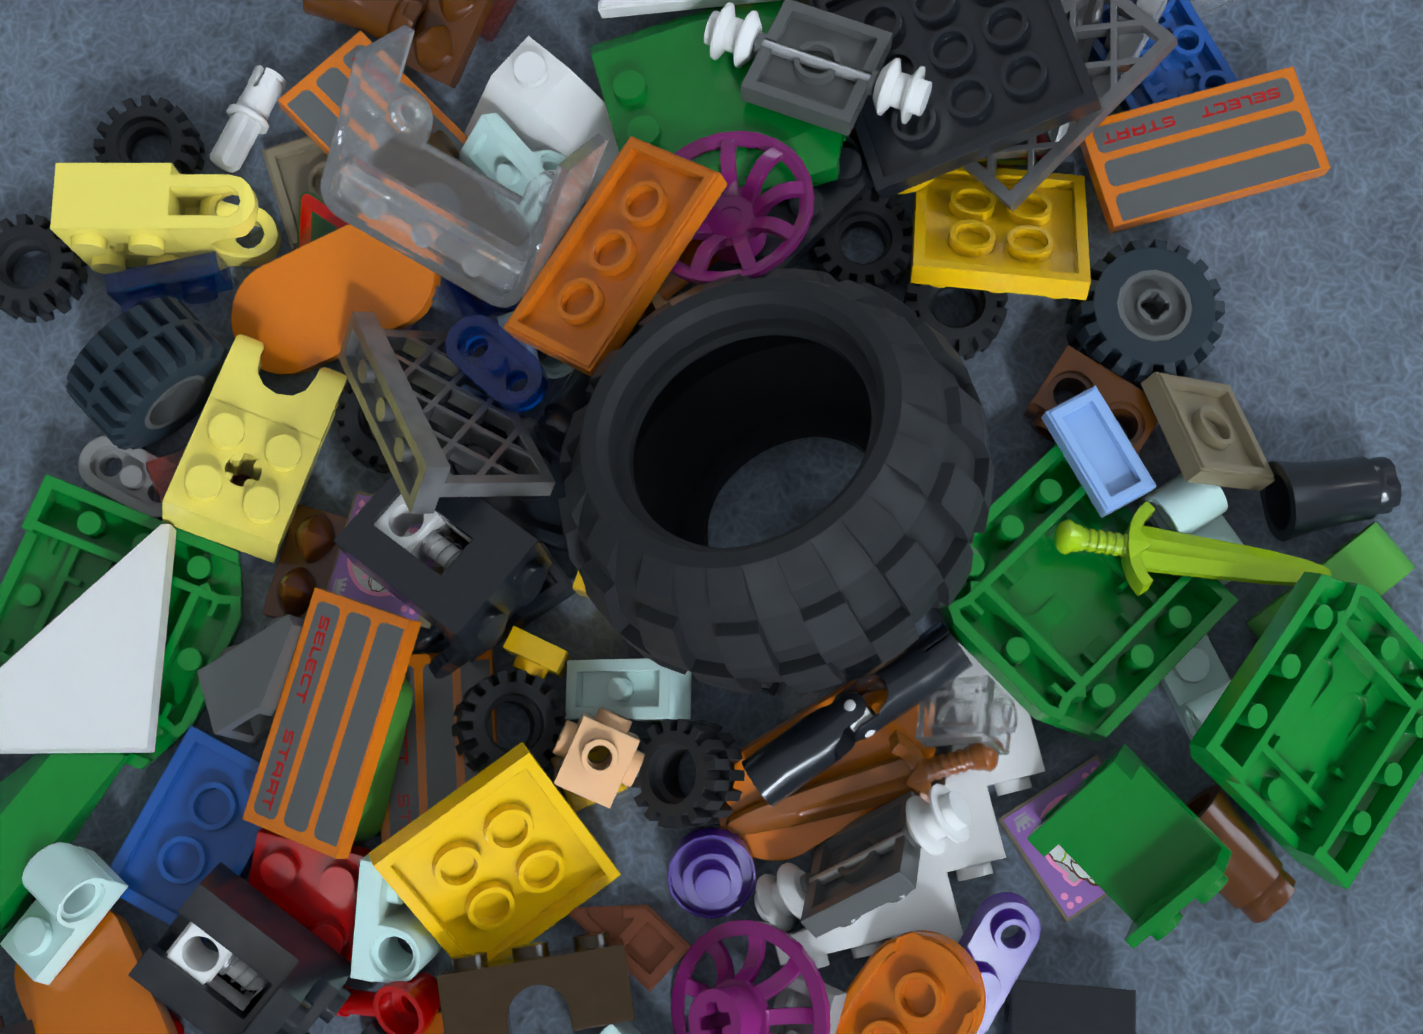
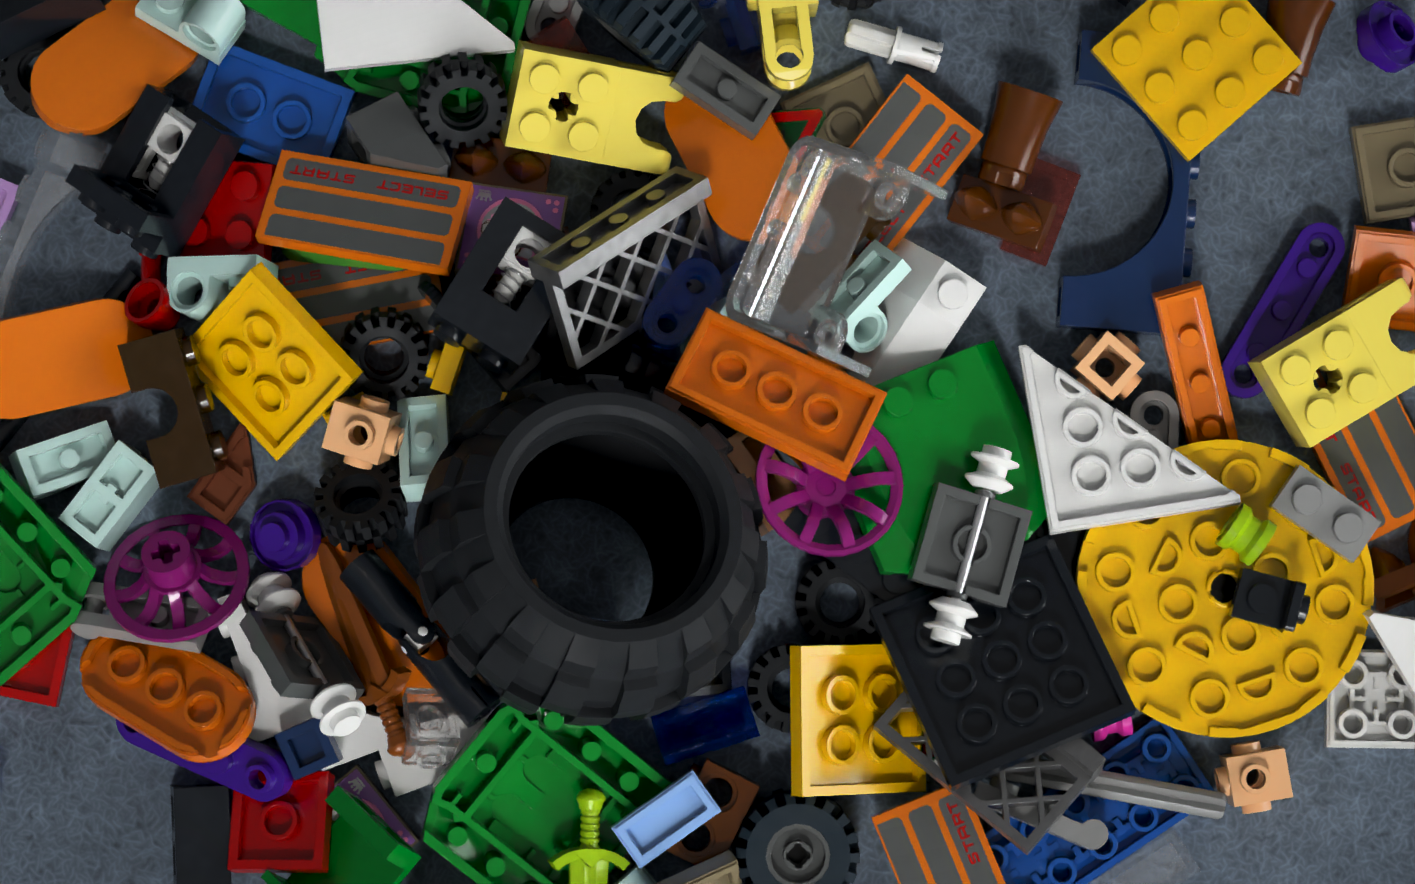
camera: 80 degrees right, 10 degrees up
(187, 609) = (462, 126): none -> black tyre
(258, 287) = (725, 90): none -> dark grey plate
(978, 868) = (307, 748): none -> dark blue plate
(999, 392) = (705, 725): none -> clear blue plate
(1080, 915) = (285, 832): none -> red plate

